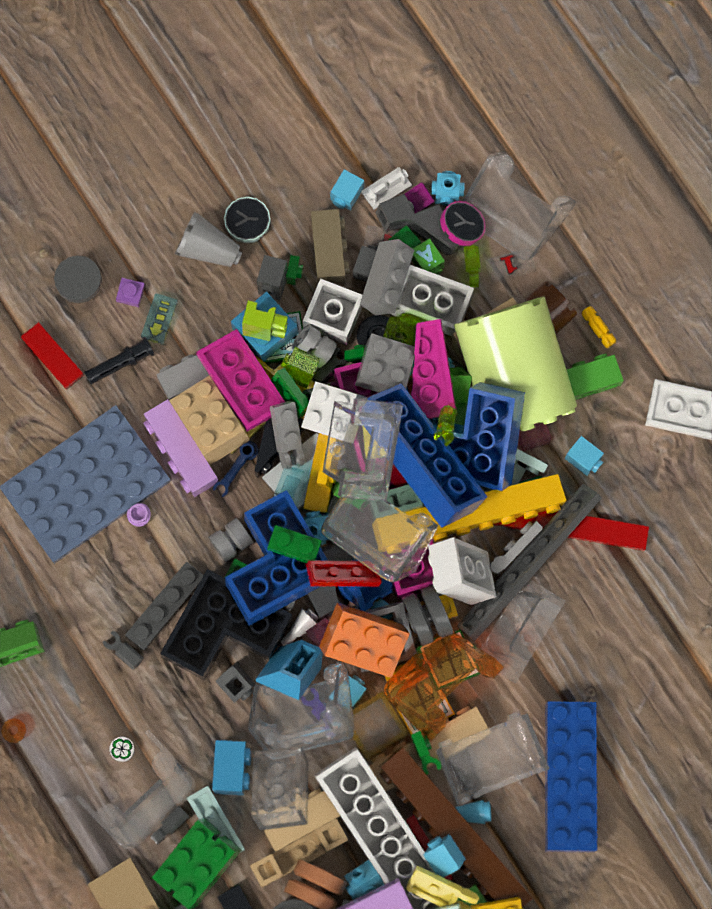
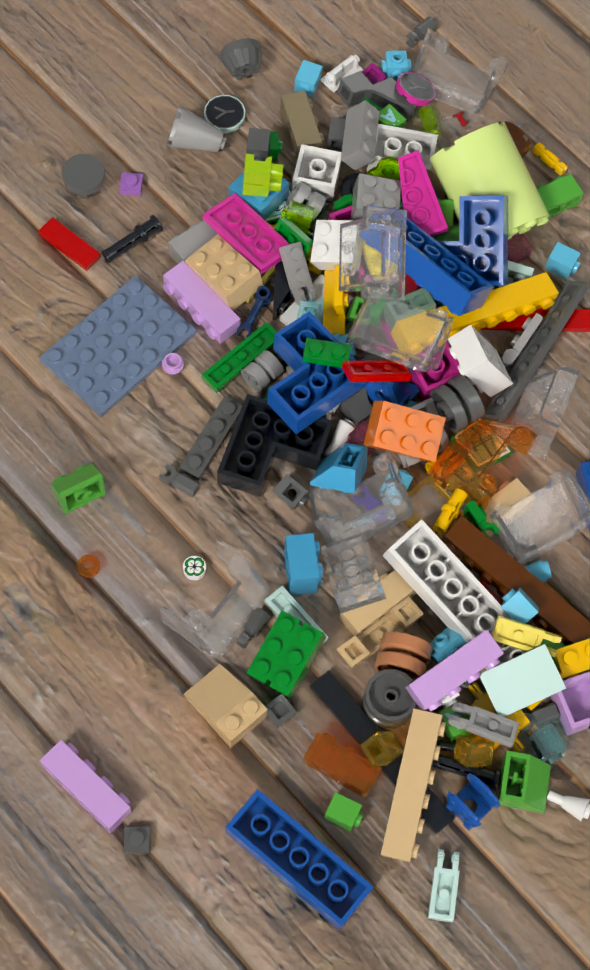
camera: 15 degrees left, 10 degrees down
(159, 318) = (161, 201): clear light blue tile -> none
(212, 518) = (238, 358): none -> green plate
(276, 157) = (242, 57): none -> dark grey piece
(394, 738) = (450, 511): none -> yellow pin
(446, 424) = (443, 233): clear neon green bar -> none
(487, 146) = (420, 31): none -> dark grey bar

